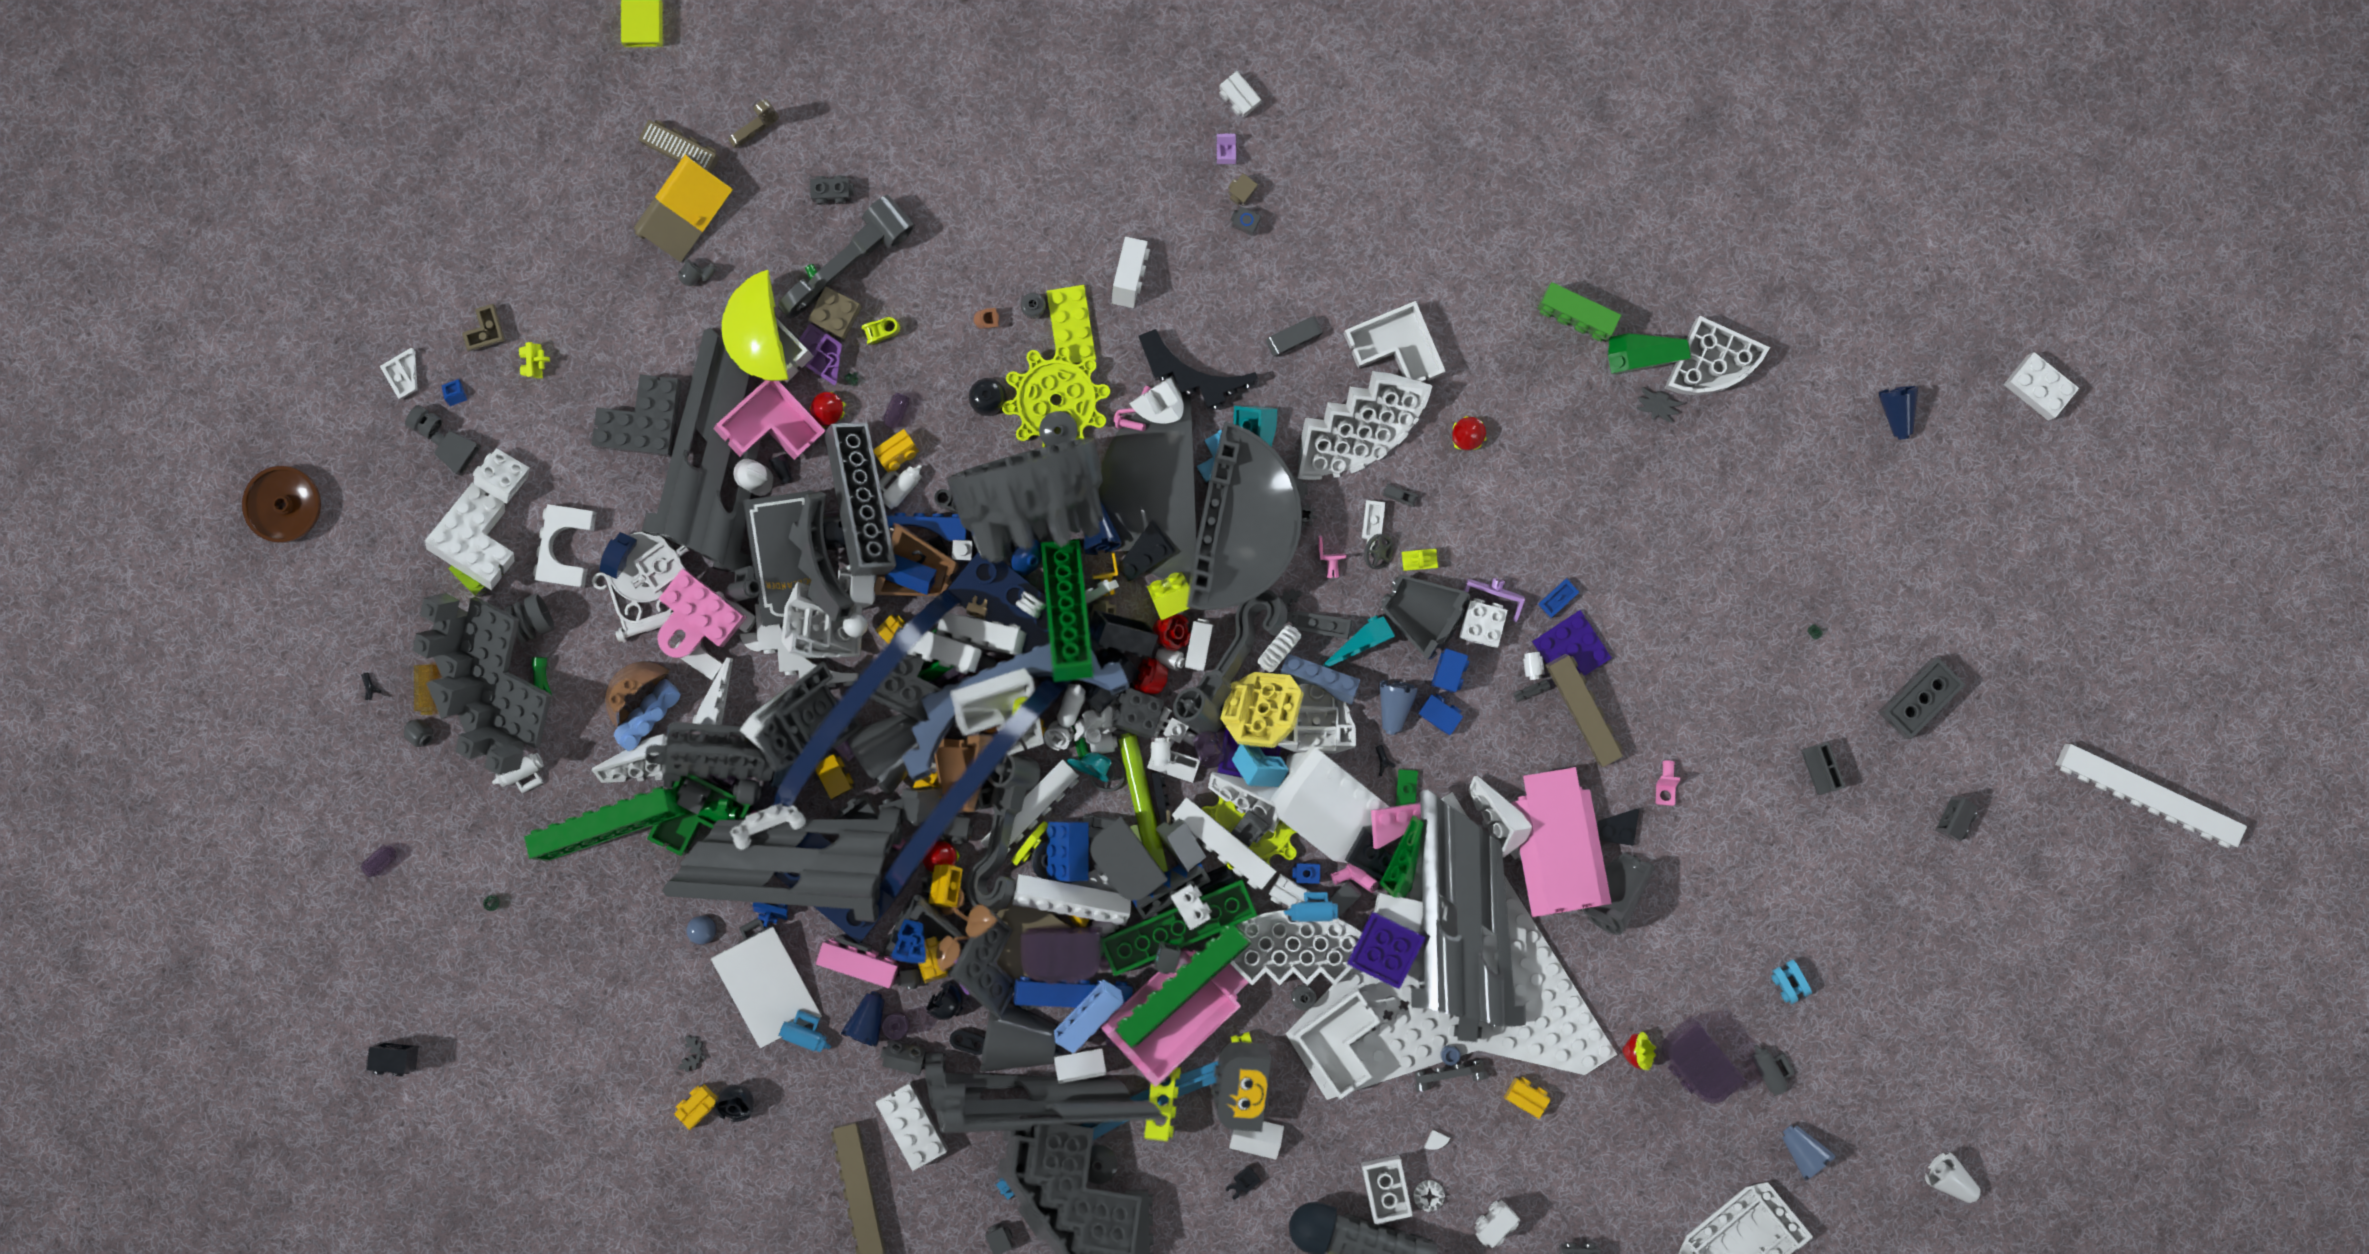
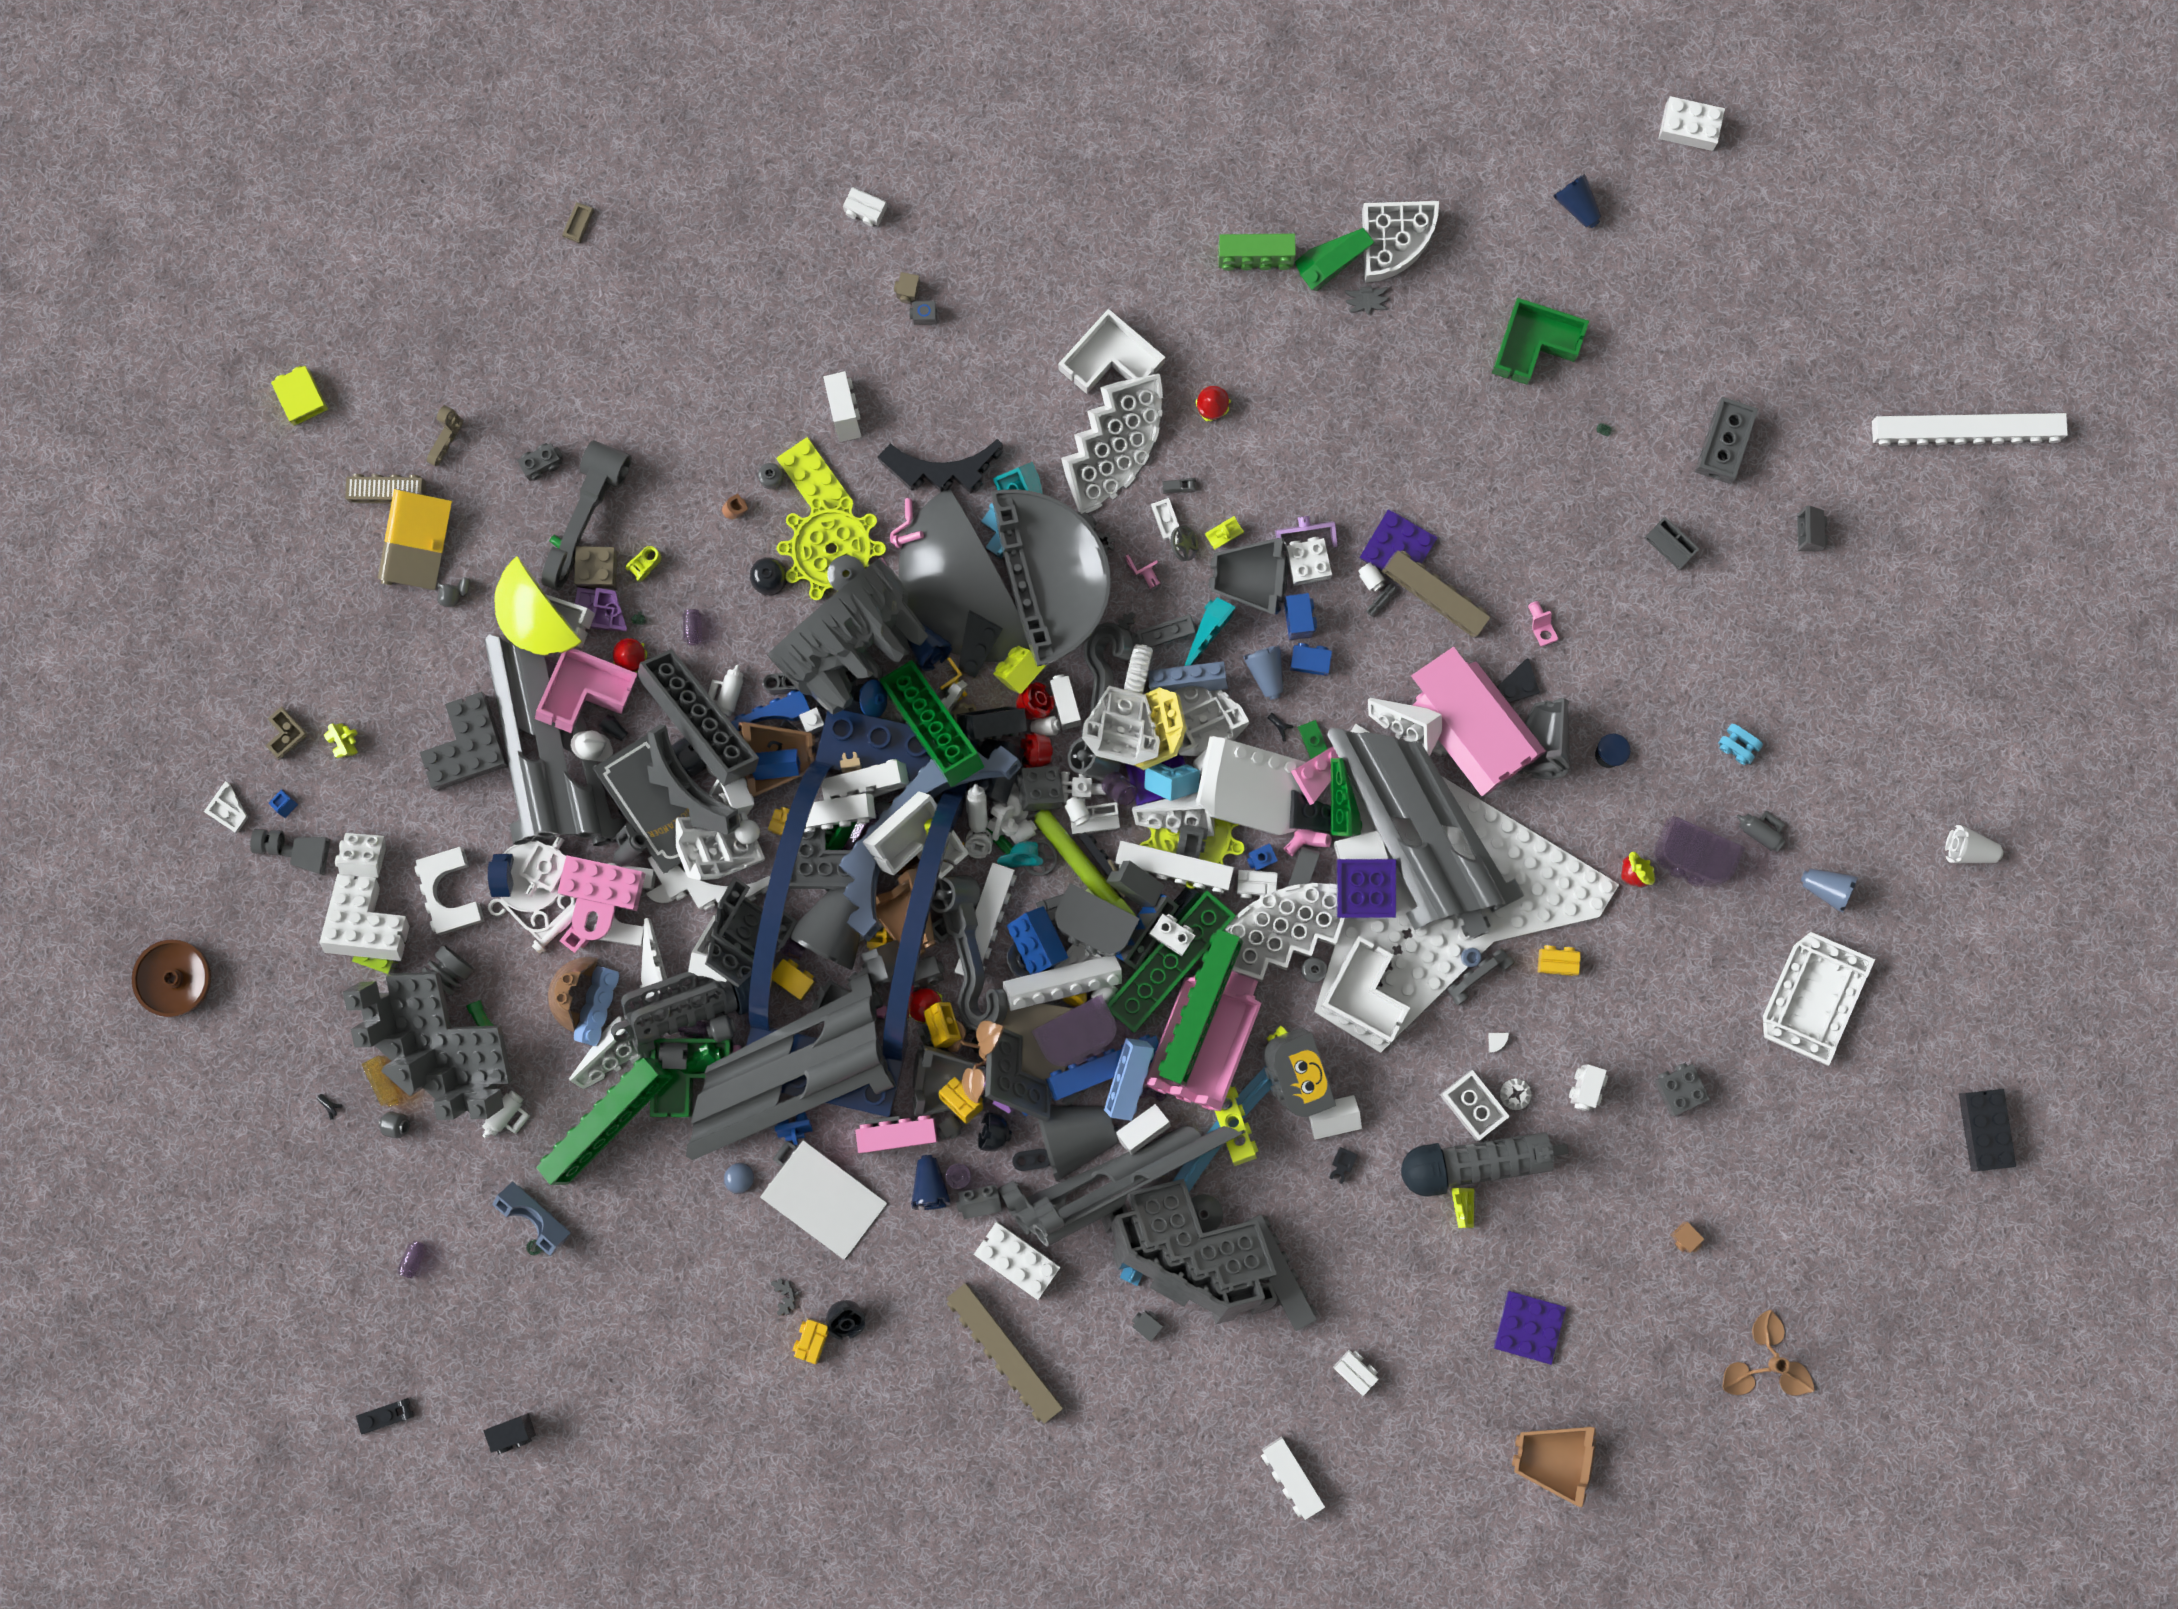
camera: 25 degrees left, 5 degrees down
(290, 987) = (384, 1416): none -> black plate
(494, 855) = (516, 1202): none -> sand blue arch
(652, 647) = (573, 940): none -> bright pink brick
(766, 819) = (749, 1042): white plate -> none
(804, 1036) = (878, 1228): dark azure piece -> none
(896, 451) = (709, 662): yellow brick -> none
(911, 943) = (935, 1092): blue slope -> none
(1029, 606) = (897, 737): white wheel -> none
(1033, 841) = (1001, 949): neon yellow wing -> none
(1161, 403) = (926, 505): white brick -> none
(1167, 957) = (1174, 991): dark grey brick -> none
(1226, 148) = (875, 259): lavender bracket -> none
(1237, 697) = (1122, 727): none -> white wedge
(1294, 335) = (1017, 390): dark grey beam -> none
(1313, 911) = (1283, 885): dark azure piece -> none
(1558, 598) = (1363, 508): blue plate -> none
(1672, 931) = (1612, 750): none -> dark blue piece
(1799, 510) = (1534, 330): none -> green piece

